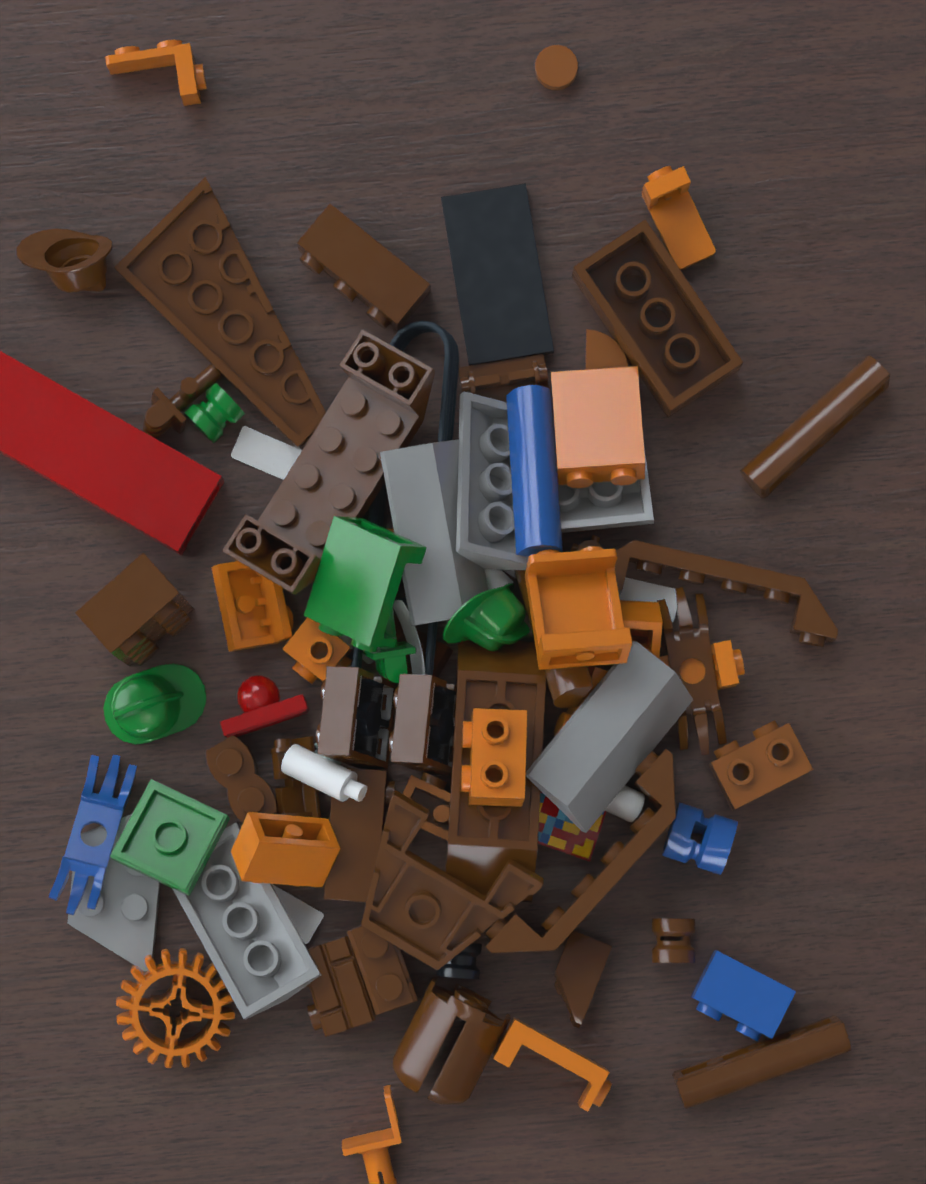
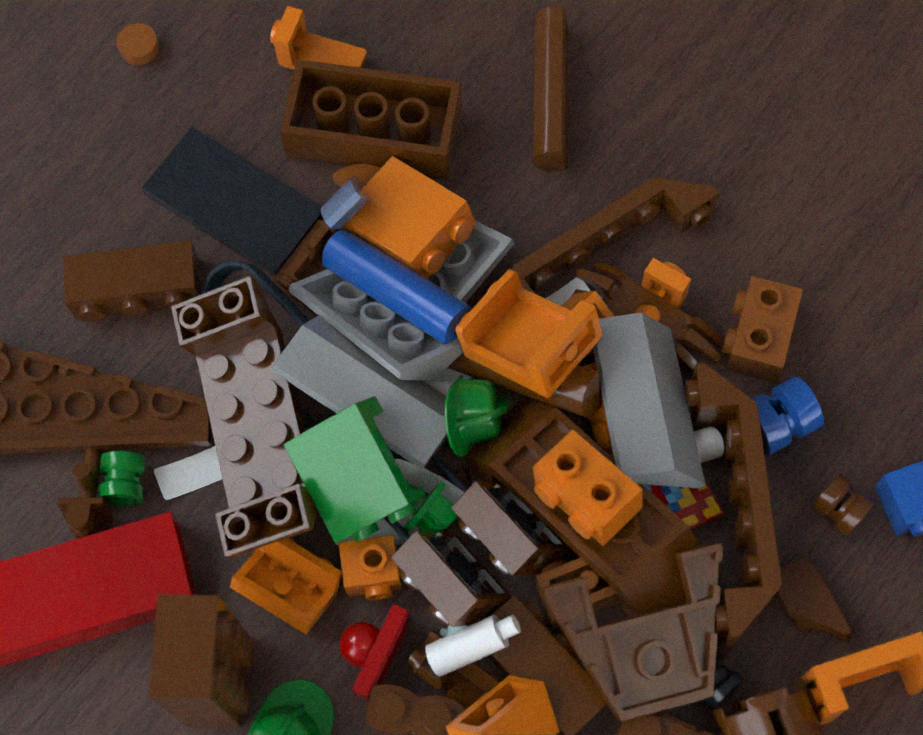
camera: 45 degrees left, 15 degrees down
(563, 369) = (344, 203): none -> sand blue slope

